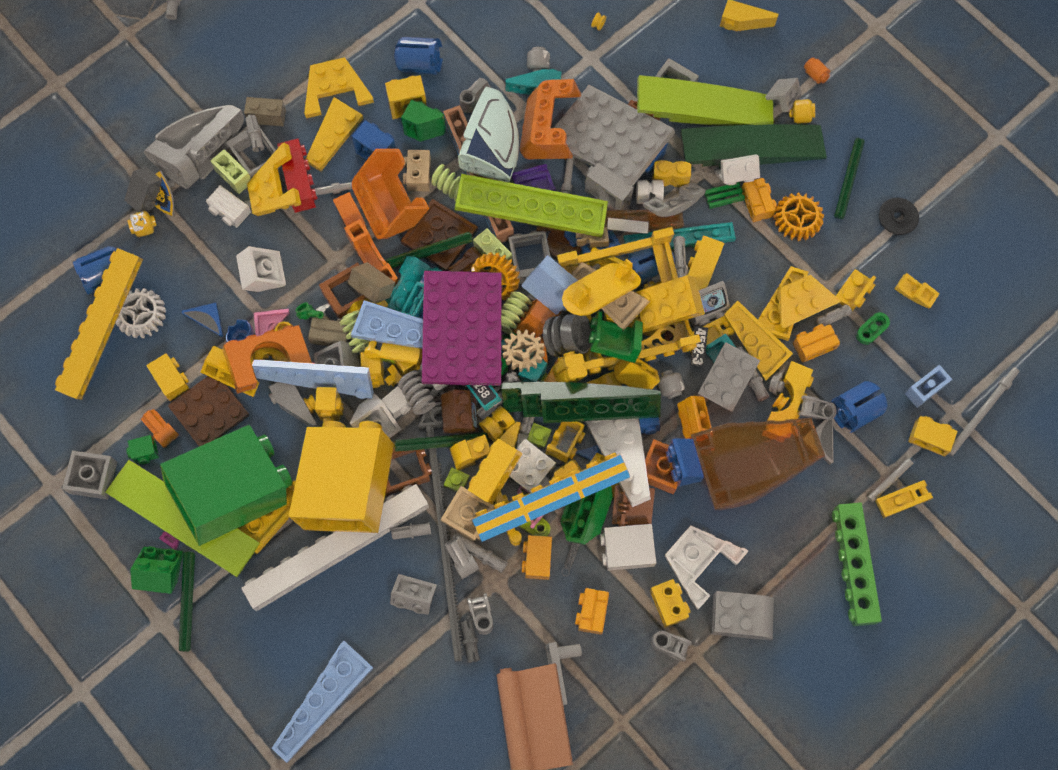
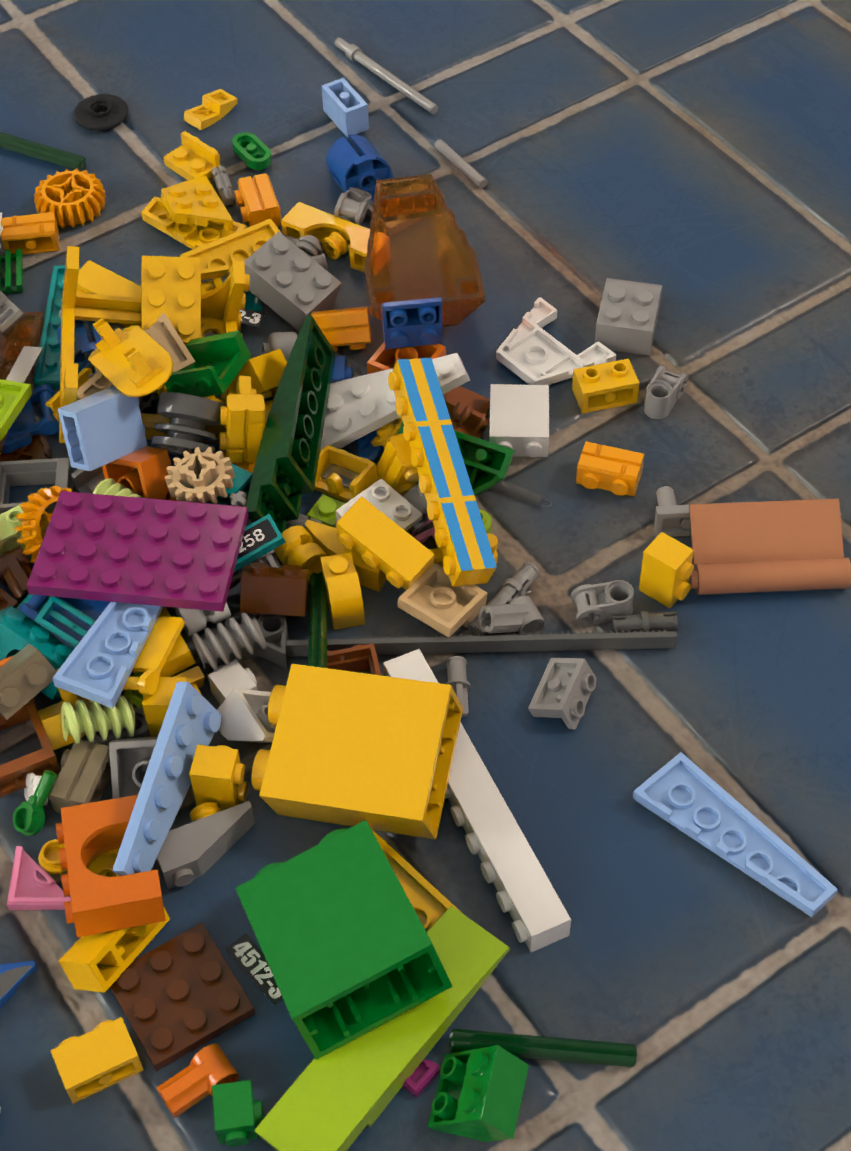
camera: 80 degrees left, 20 degrees down
(239, 330) = (44, 923): blue hair -> none
(456, 479) = (381, 622): lime plate -> none
(502, 651) = (666, 570): none -> yellow brick
(538, 557) = (523, 524): light orange brick -> none
(593, 240) = (33, 408): tan plate -> none
(854, 513) = (569, 200): bright green brick -> none
(903, 499) = (488, 152): yellow plate -> none
(932, 435) = (411, 113): yellow brick -> none

